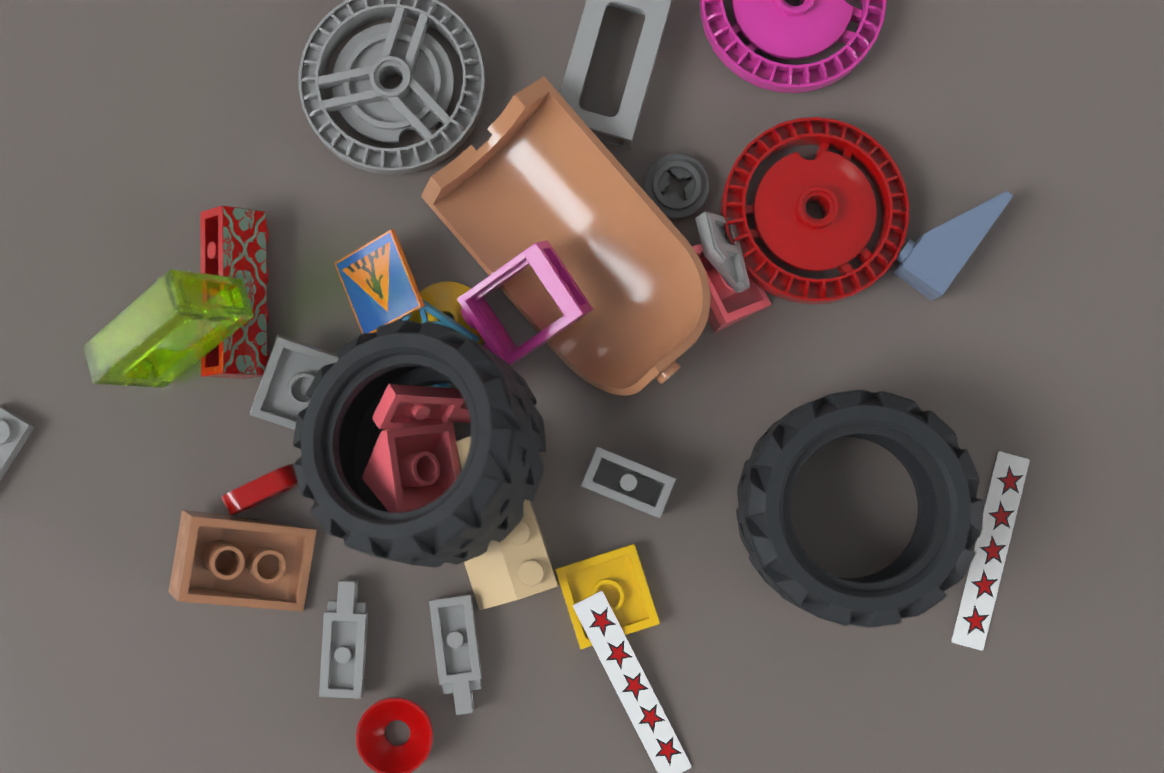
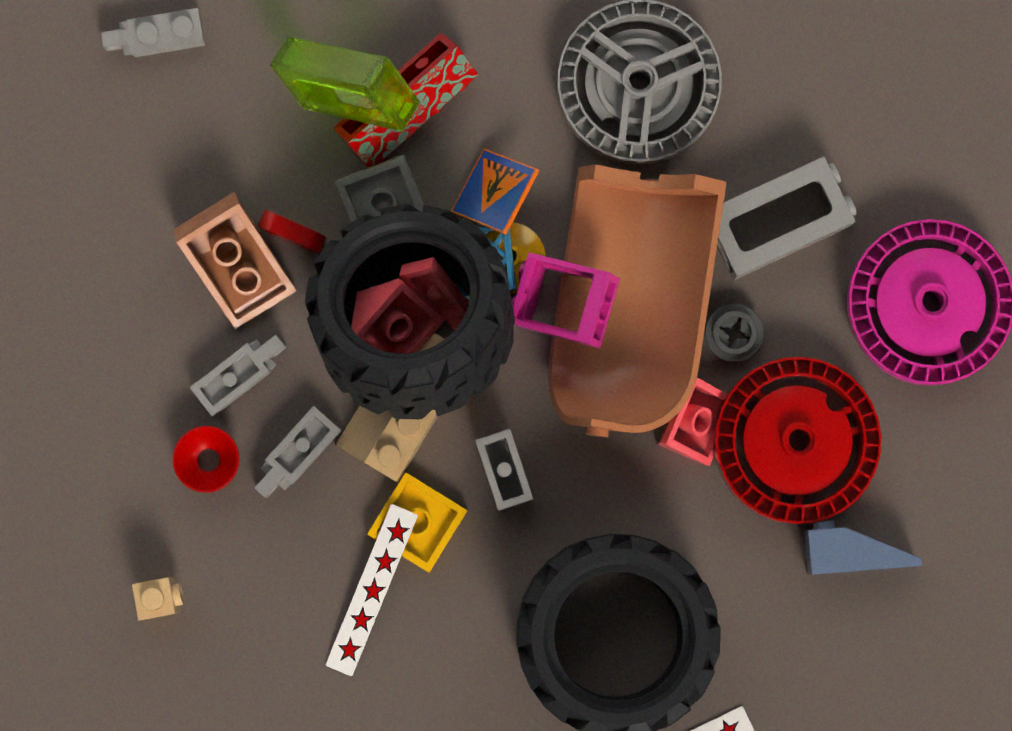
camera: 50 degrees right, 0 degrees up
(720, 253) = (712, 399): light grey tile -> none

